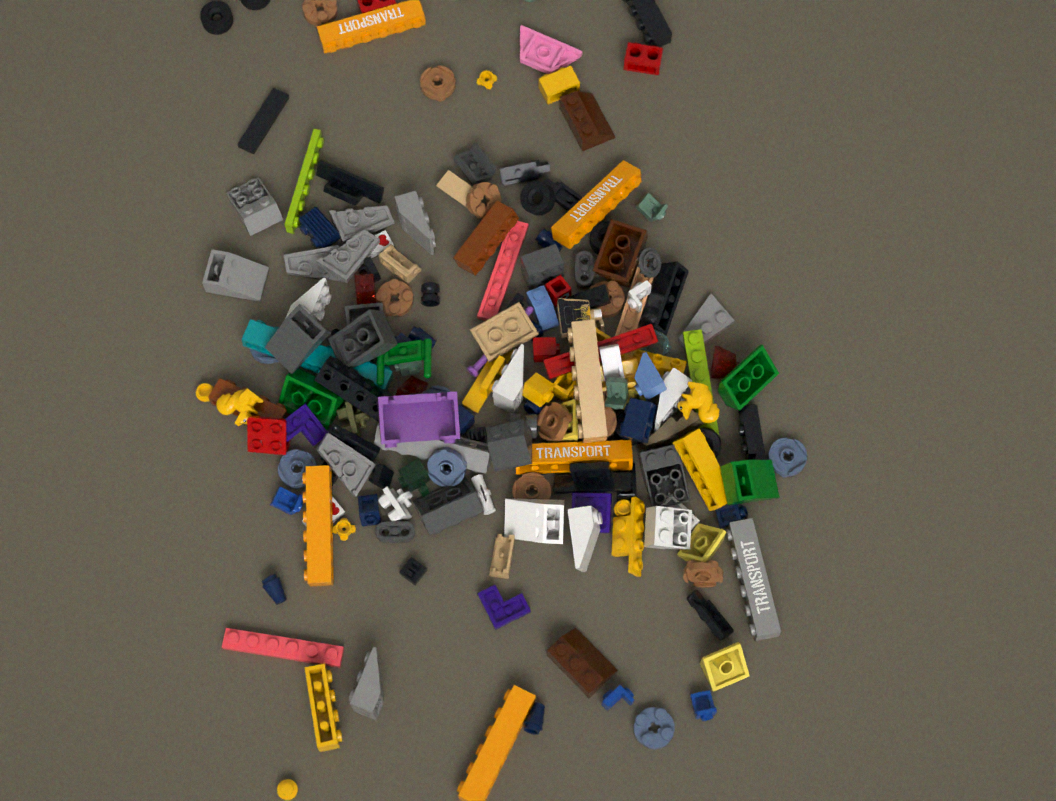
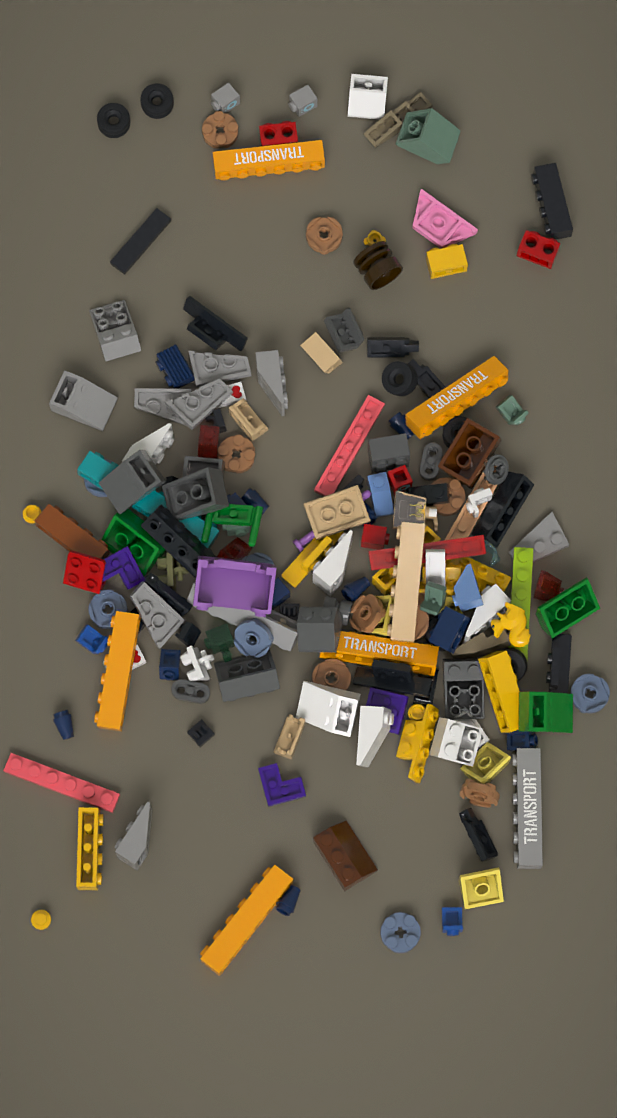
camera: 10 degrees right, 5 degrees up
(242, 401) = (66, 532): yellow animal -> none
(303, 188) = (167, 321): lime plate -> none
(344, 523) = (143, 672): yellow plate -> none
(430, 294) = (272, 457): black wheel -> none
(477, 193) = (354, 374): medium nougat plate -> none
(486, 238) = (339, 410): dark orange brick -> none
(487, 505) = (285, 684): white pin -> none
(495, 99) = (378, 265): none -> dark brown wheel
(538, 390) = (358, 578): yellow brick -> none
(585, 119) = (466, 303): reddish brown slope -> none
(612, 697) = (366, 895): blue bracket -> none

